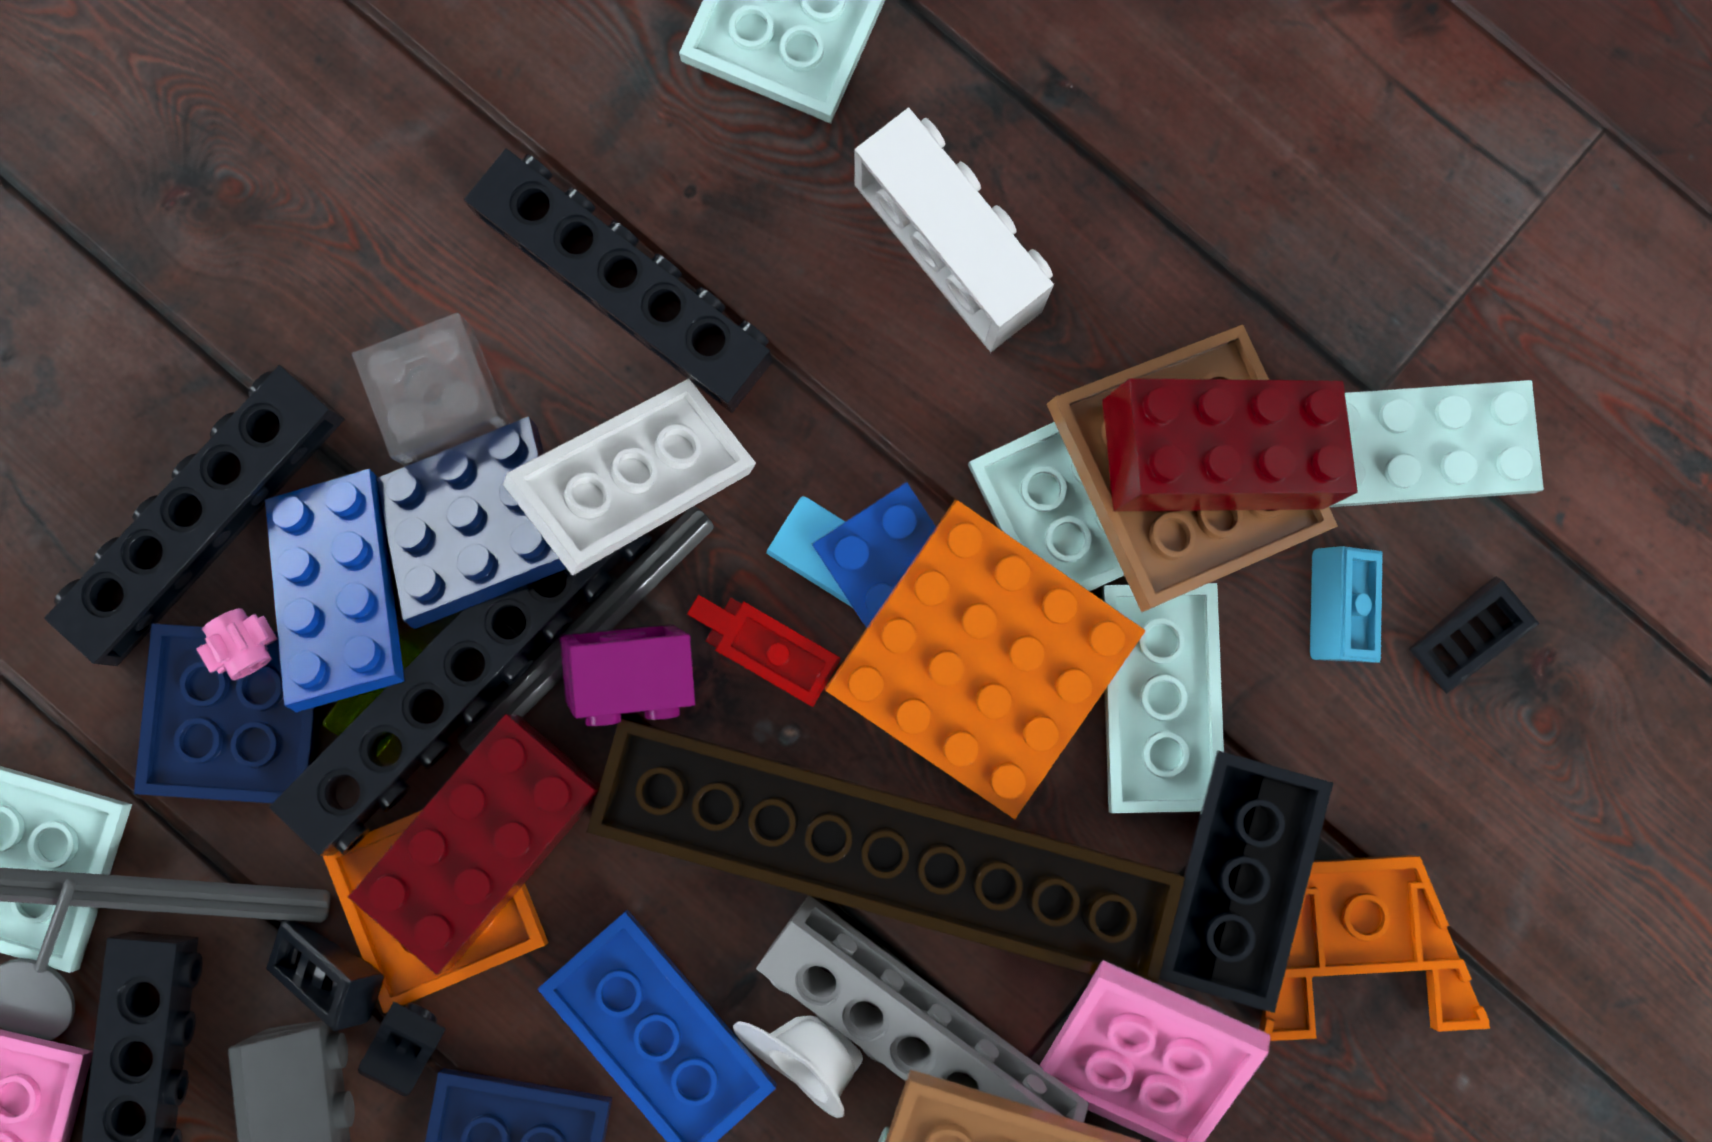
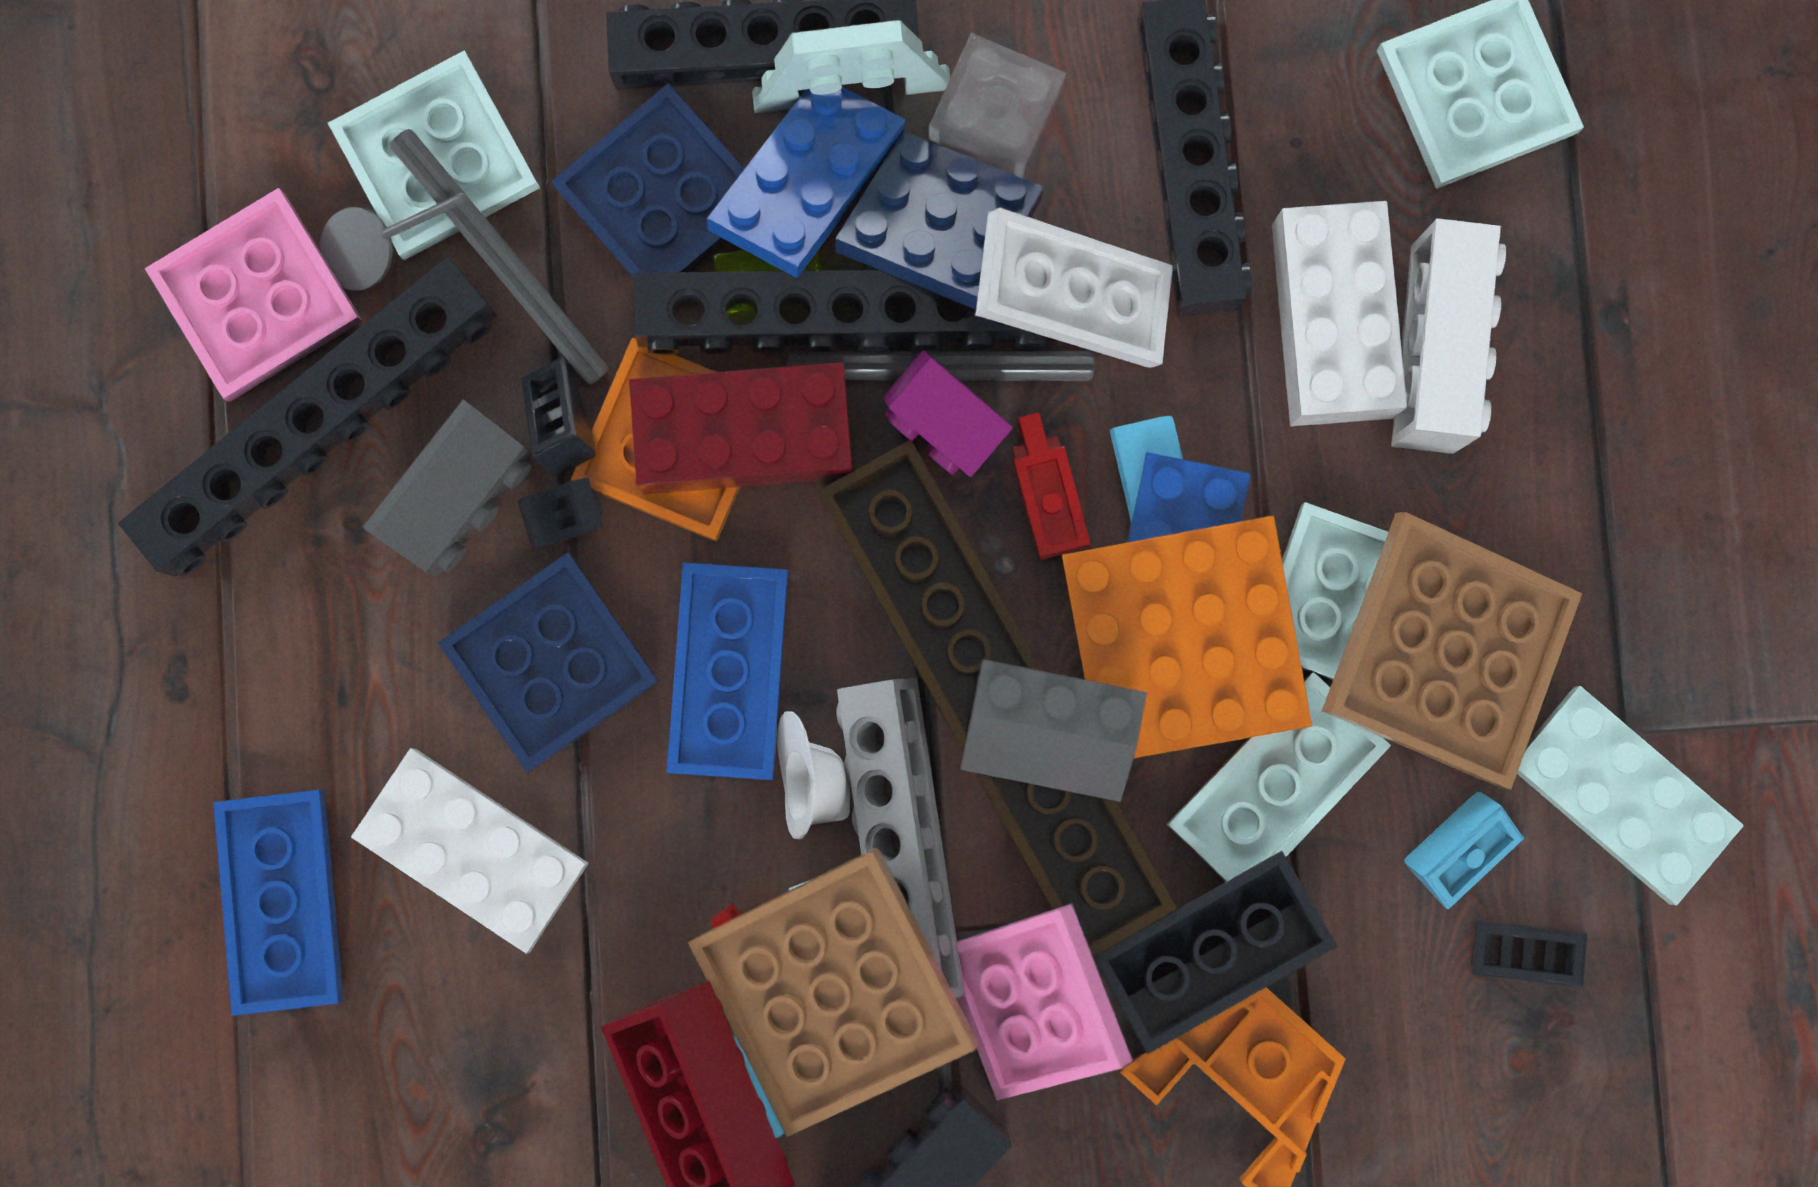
camera: 45 degrees right, 0 degrees up
(236, 644) = (713, 149): bright pink gear -> none
(271, 465) = (848, 56): none -> light aqua wing
(851, 291) = (1338, 313): none -> white brick
(954, 839) = (1053, 730): none -> dark grey slope
(1228, 445) = (1491, 658): dark red brick -> none

